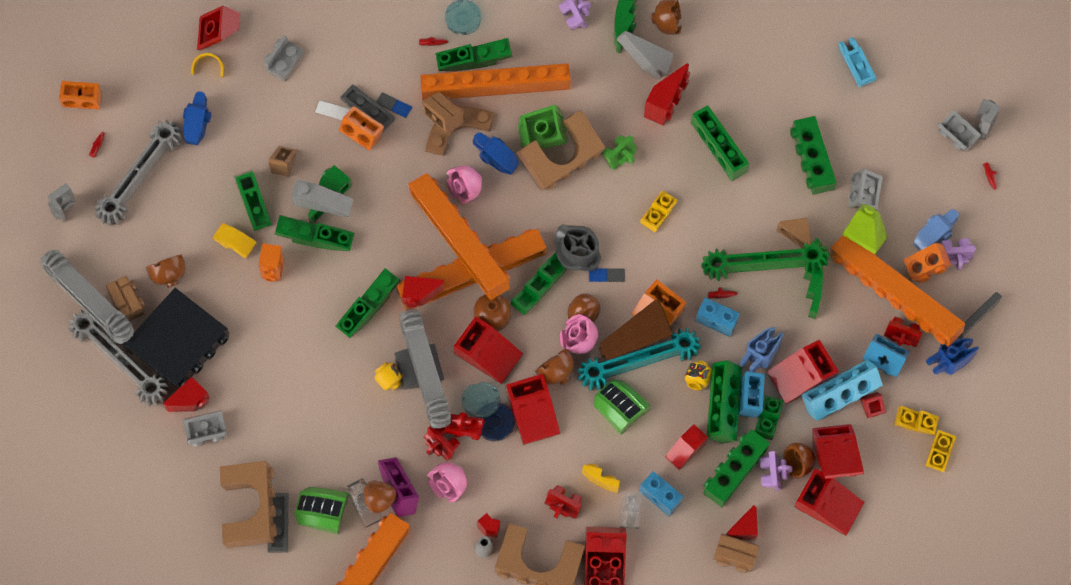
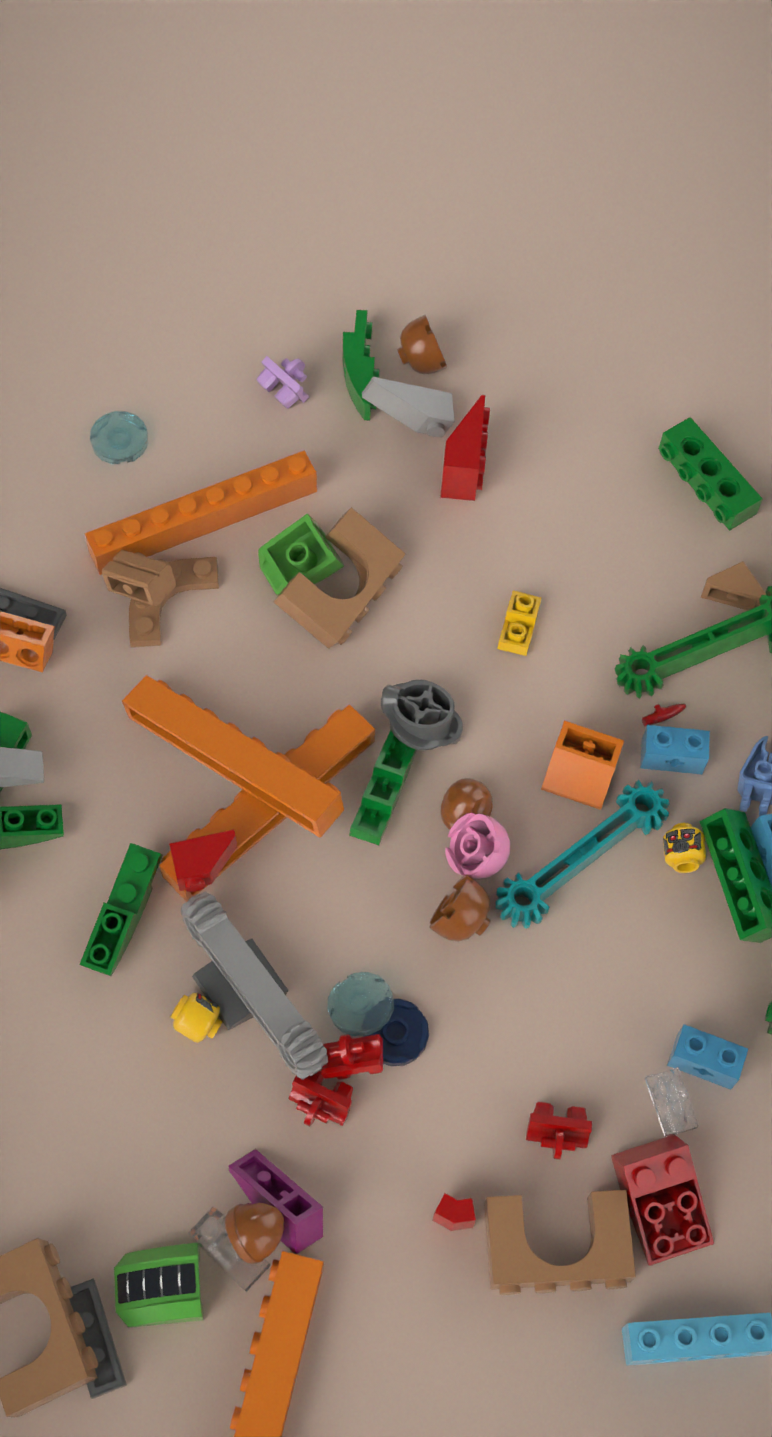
camera: 20 degrees left, 5 degrees down
(394, 105) = (58, 594): sticker -> none
(432, 41) = (84, 485): red helmet -> none
(448, 481) = (358, 1159): bright pink cylinder -> none
(464, 183) = (209, 674): bright pink cylinder -> none
(473, 57) = (156, 487): green slope -> none
(484, 551) = (458, 1261): light grey cone -> none
(487, 350) = (341, 920): red slope -> none
(493, 312) = (325, 860): dark orange cylinder -> none
(496, 153) = (241, 614): blue hinge -> none
(532, 409) = (450, 990): red slope -> none
(593, 473) = (591, 1064): yellow slope -> none
(607, 275) = (480, 742): sticker -> none
(620, 405) = (582, 935): bright green slope -> none
(622, 153) = (433, 555): bright green hips -> none
(641, 330) = (569, 810): reddish brown slope -> none
(686, 446) = (714, 966): red slope -> none
(719, 143) = (570, 496): green brick -> none
(857, 63) = (711, 332): medium azure hinge -> none

